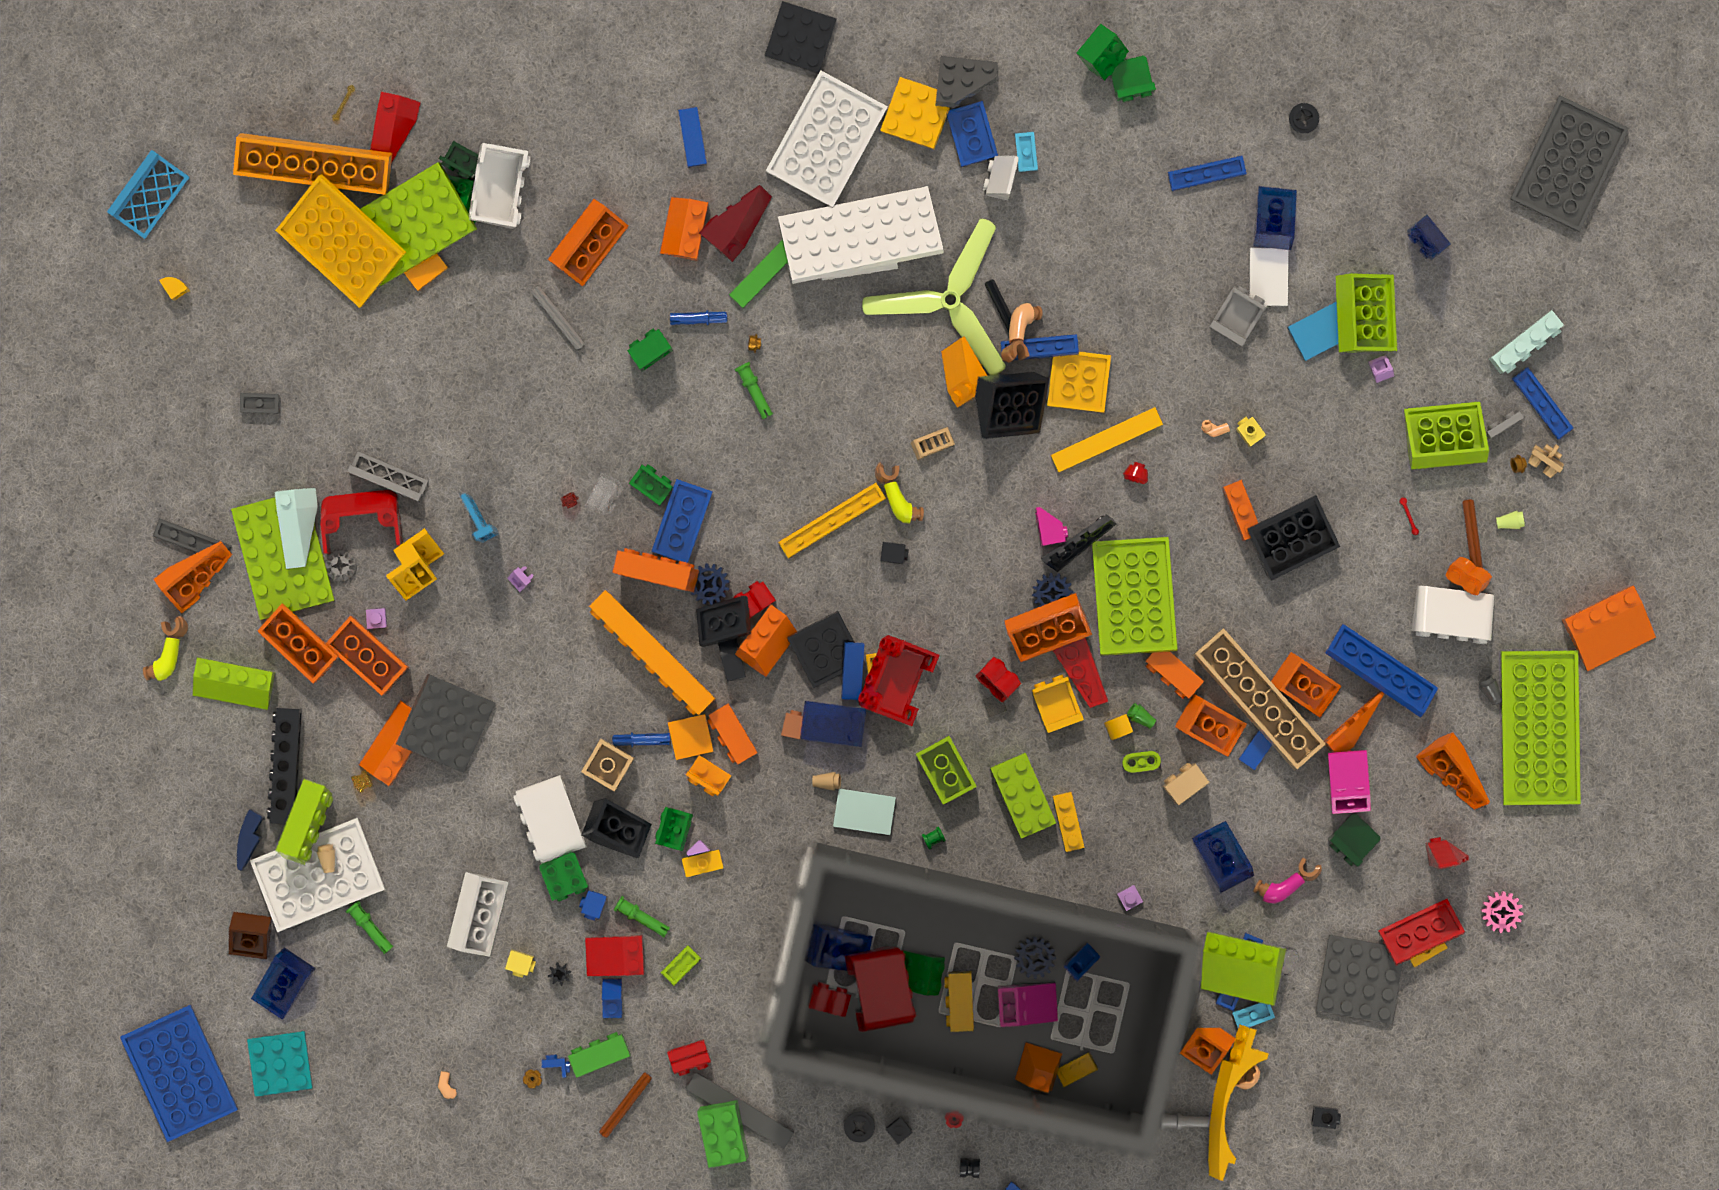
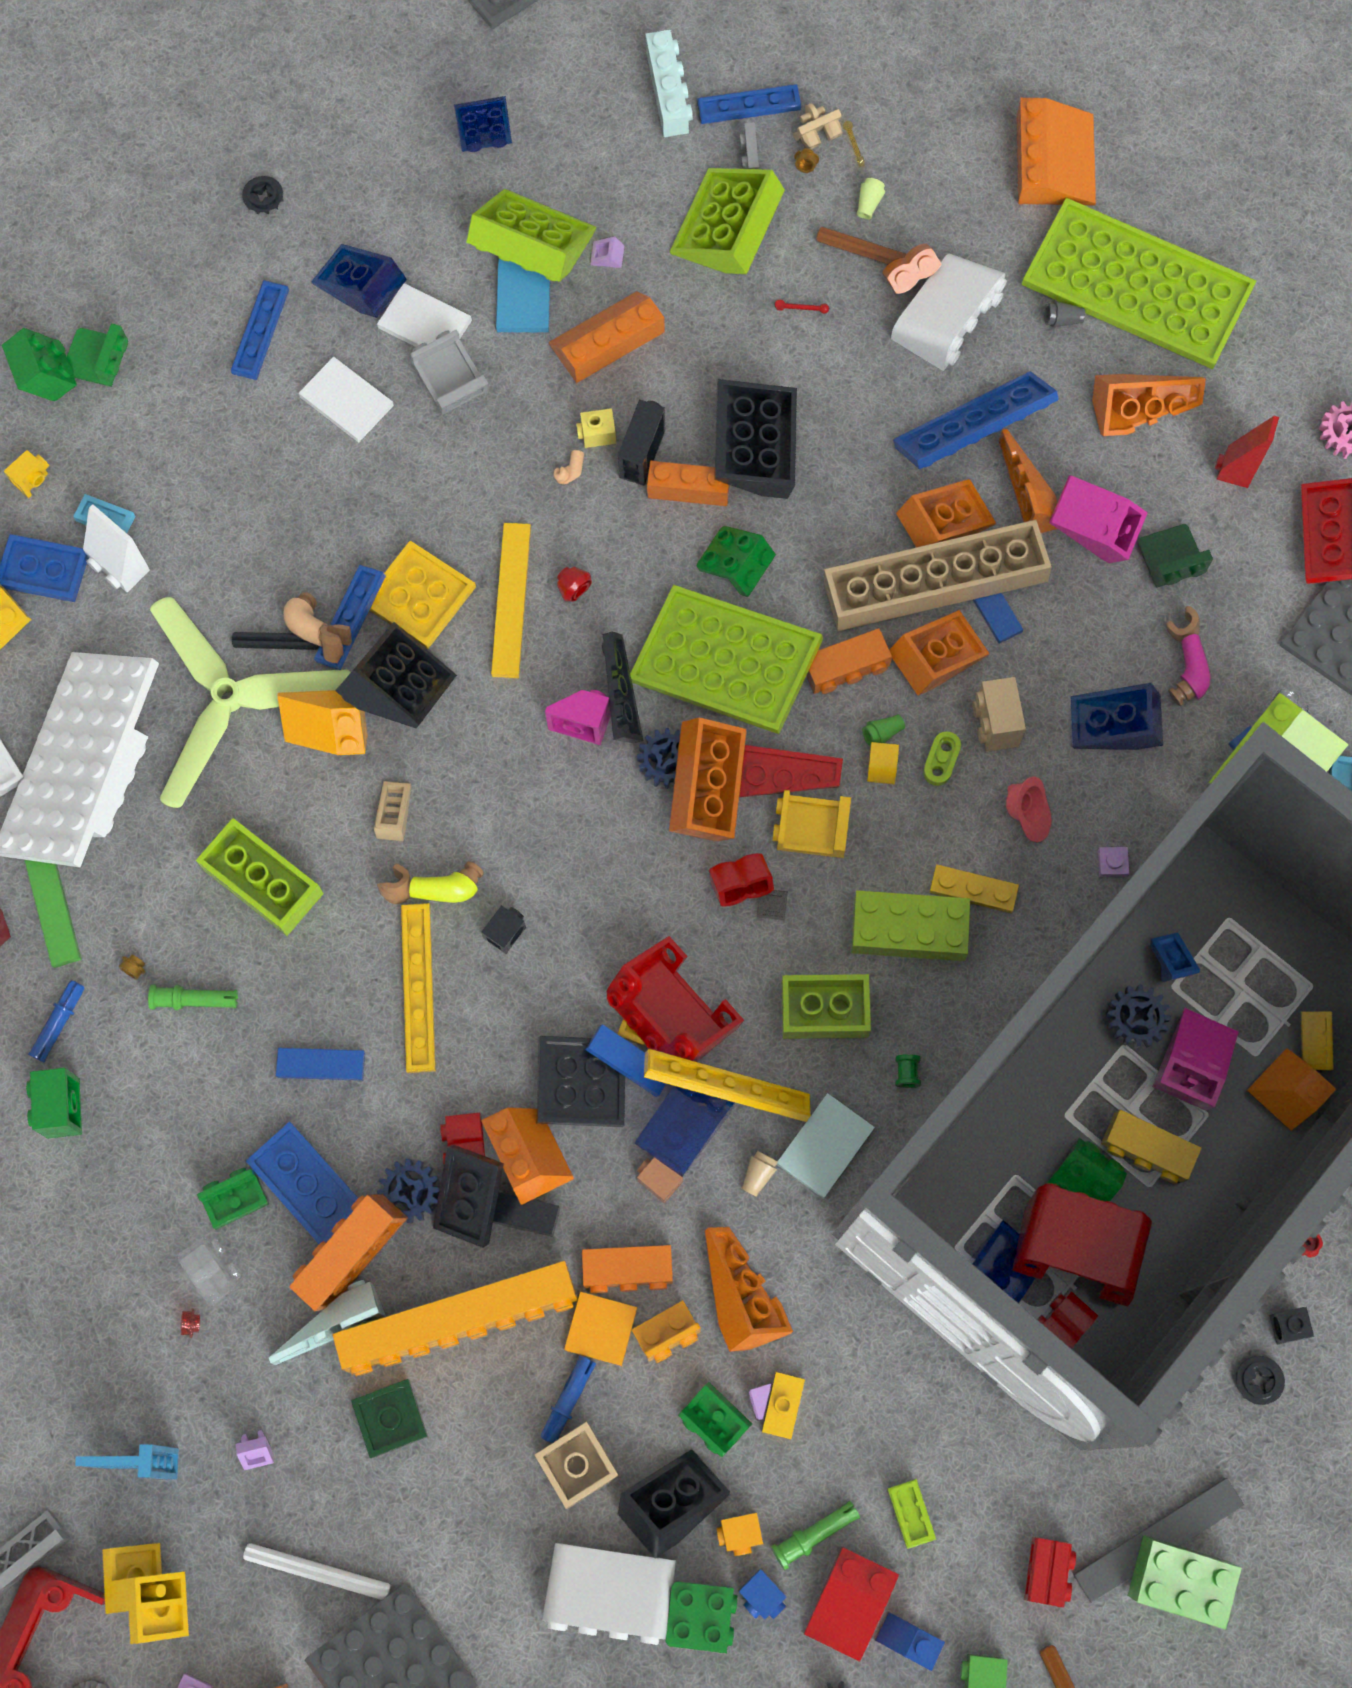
camera: 55 degrees left, 15 degrees down
(475, 650) = (316, 1571): none -> white axle
(577, 644) = (389, 1418): none -> dark green plate
(619, 875) = (740, 1534): none -> light orange brick
(621, 587) = (347, 1311): none -> light aqua wedge
(745, 812) = (742, 1305): none -> orange wedge
(756, 488) = (320, 1064): none -> blue tile
(846, 389) = (259, 877): none -> lime brick
(866, 737) = (727, 1085): none -> yellow tile
(1029, 86) = (27, 472): none -> yellow brick
(1135, 832) = (1030, 806): none -> coral piece
(1187, 257) = (346, 399): none -> white tile
(1207, 566) = (737, 557): none -> green bracket
(1253, 466) = (641, 441): none -> black window
(1321, 401) = (608, 335): none -> orange slope
(1561, 477) = (848, 125): none -> clear yellow hinge

